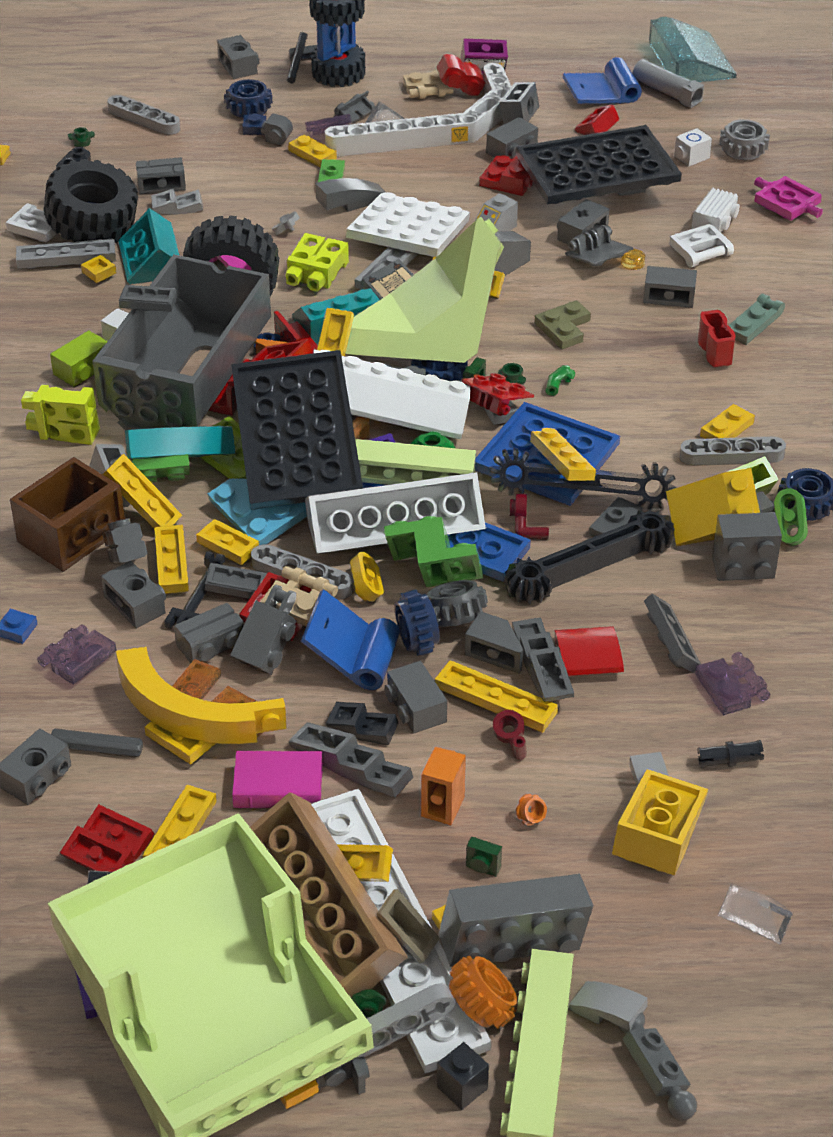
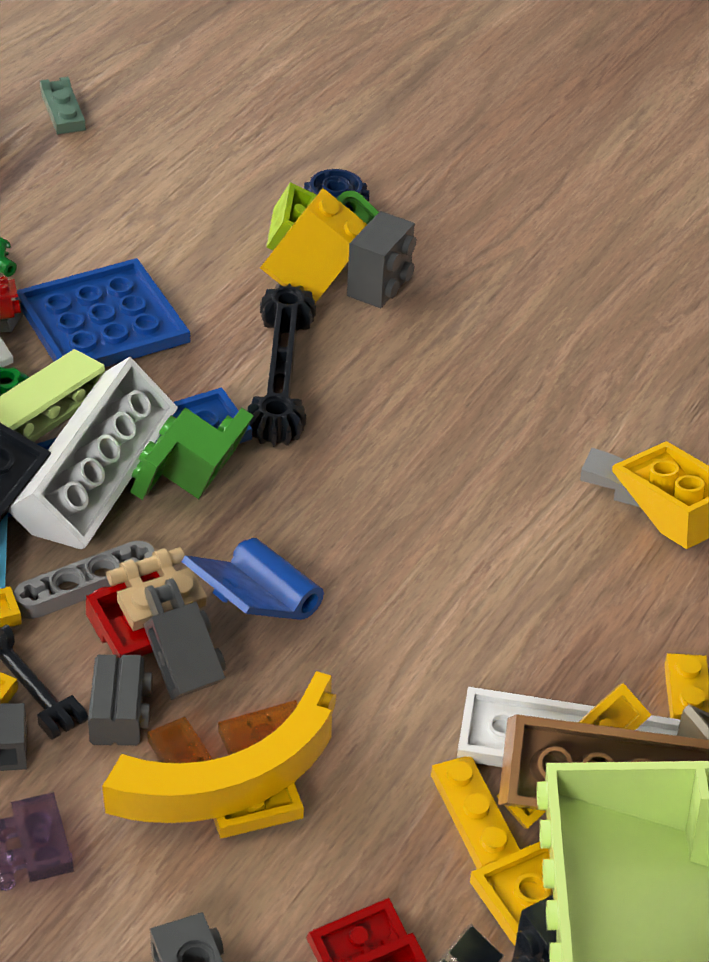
camera: 60 degrees left, 0 degrees up
(100, 742) = (197, 888): dark grey axle -> none
(184, 818) = (403, 872): yellow plate -> none
(233, 580) = (50, 639): dark grey plate -> none
(268, 776) = (394, 750): dark pink piece -> none
(352, 761) = (405, 678): dark grey slope -> none
(365, 725) = (367, 641): black slope -> none
(366, 577) = (137, 527): yellow plate -> none
(416, 697) = (368, 578): dark grey brick -> none
(417, 622) = (278, 518): dark blue gear -> none
(443, 785) = (528, 614): orange brick -> none
(457, 602) = (268, 481): dark grey gear -> none
(483, 856) = (630, 638): dark green plate -> none
(494, 642) = (342, 484): dark grey slope -> none
(495, 695) = (413, 522): yellow plate -> none
(515, 738) = (477, 535): dark red plate -> none
(518, 508) = (169, 374): dark red plate -> none
(537, 812) = (589, 574): orange plate -> none
(543, 660) = (403, 467): dark grey slope -> none
(562, 455) = (159, 295): yellow plate -> none
(590, 650) = (408, 429): red slope -> none
(593, 485) = (136, 336): black arm -> none
(614, 516) = (242, 325): dark grey plate -> none
(671, 633) = (435, 367): dark grey plate -> none
(693, 450) = (221, 206): light grey beam -> none
(716, 338) = (74, 133): red brick -> none
(725, 688) = (524, 372): clear purple plate -> none
(728, 423) = (187, 195): yellow plate -> none
(730, 753) = (617, 411): black pin -> none

